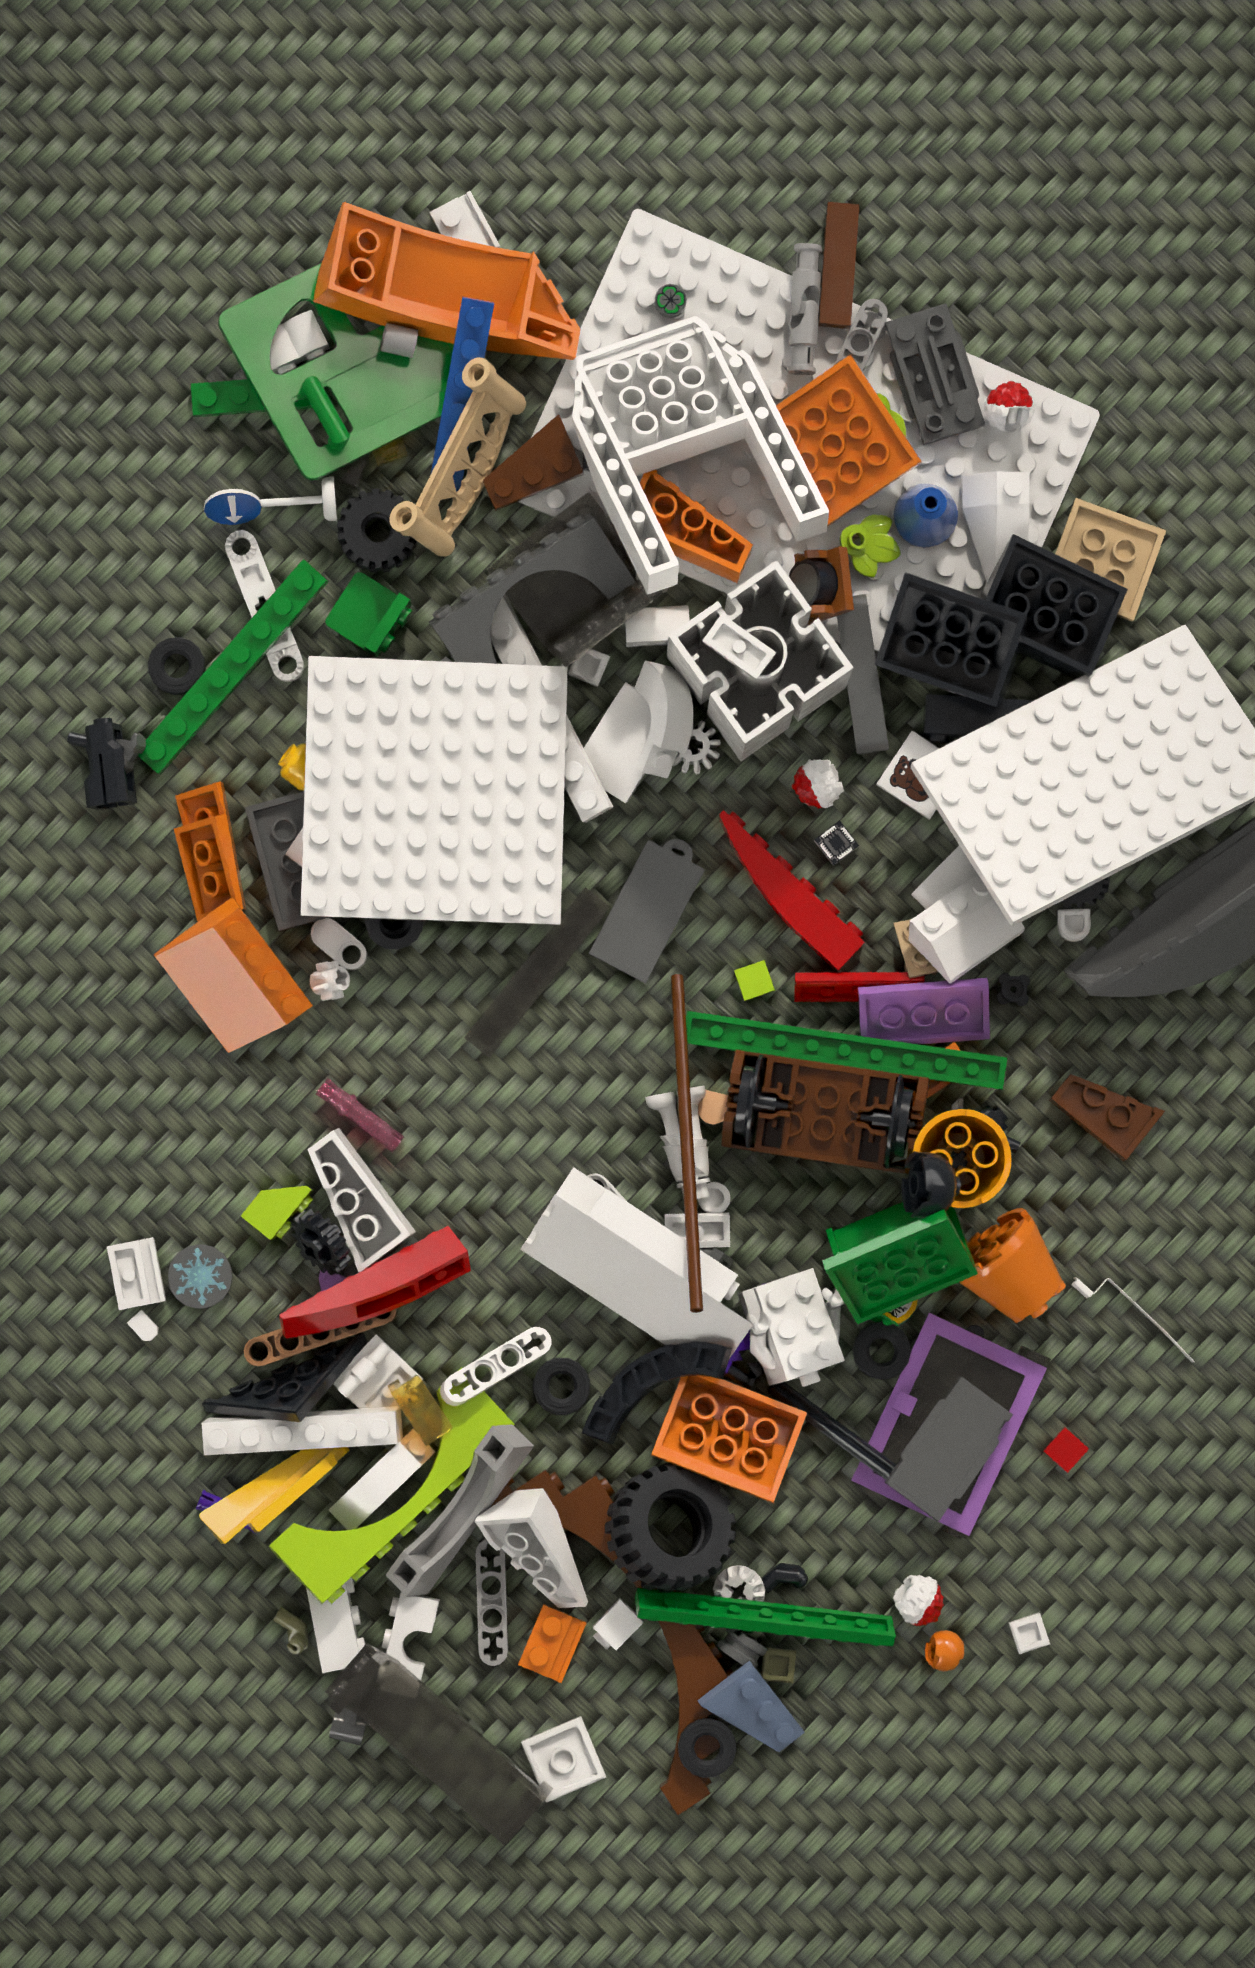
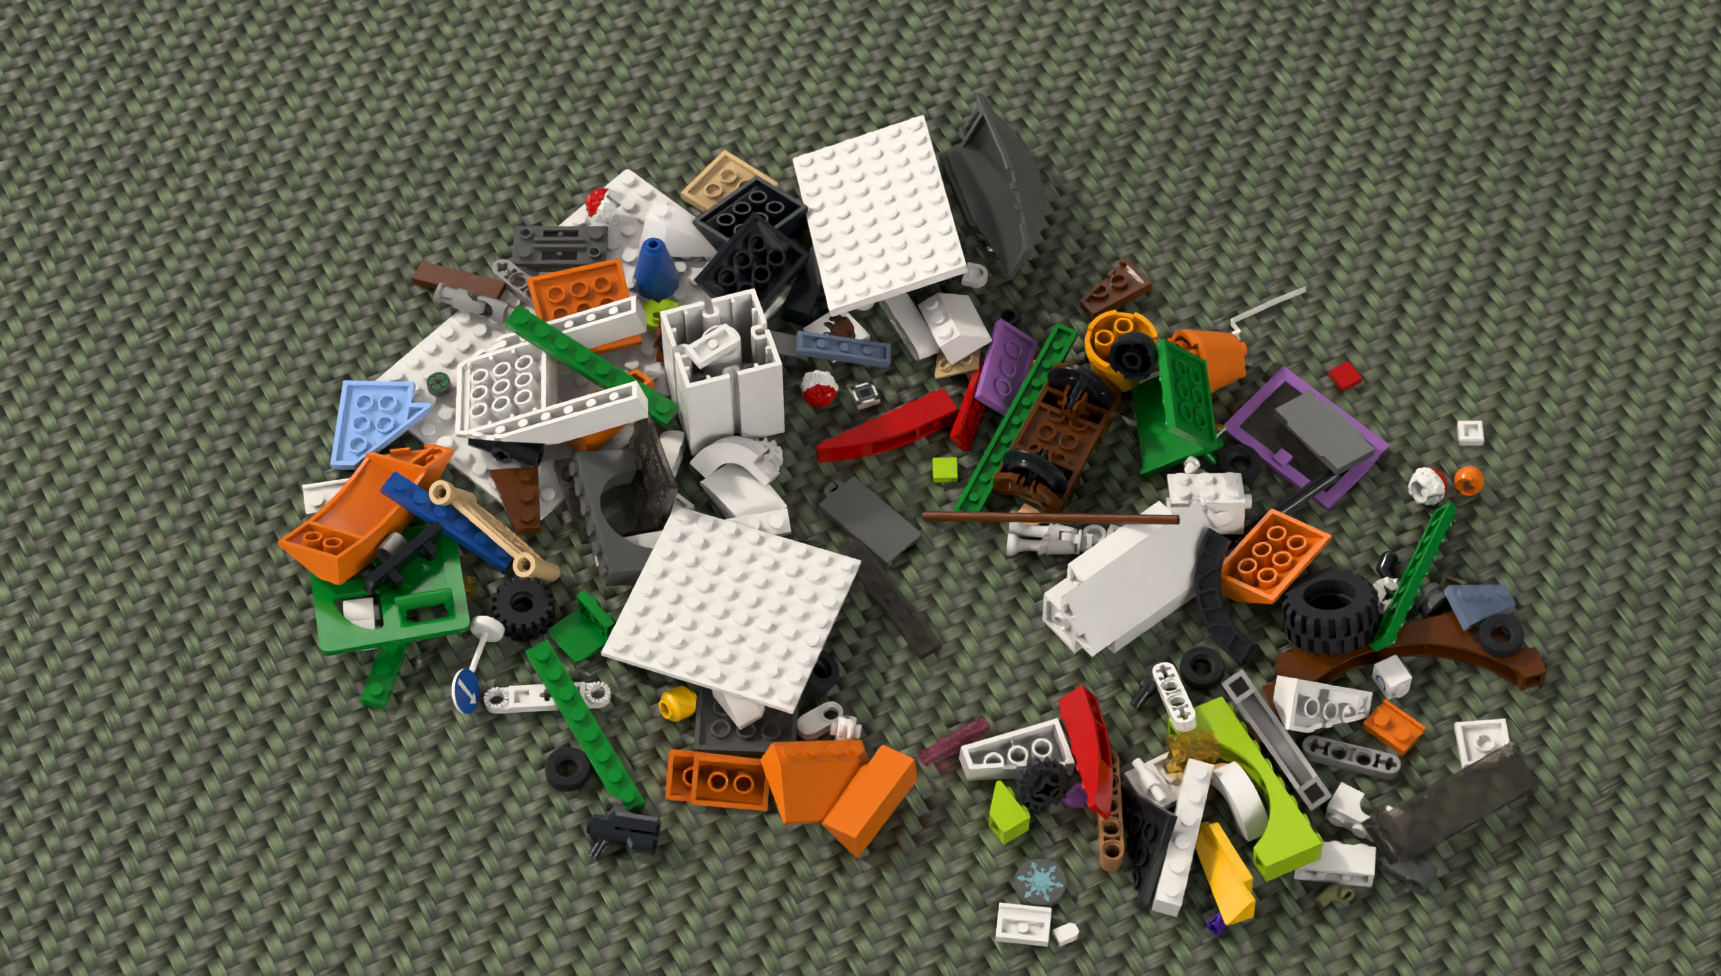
camera: 70 degrees left, 30 degrees down
(234, 1041) = (871, 799): none -> orange slope
(356, 350) = (389, 571): none -> black hinge
(498, 1326) = (1146, 690): none -> black arm
(589, 238) = (372, 418): none -> light blue wing
(723, 488) = (584, 361): none -> green plate
(889, 793) = (843, 349): none -> sand blue tile

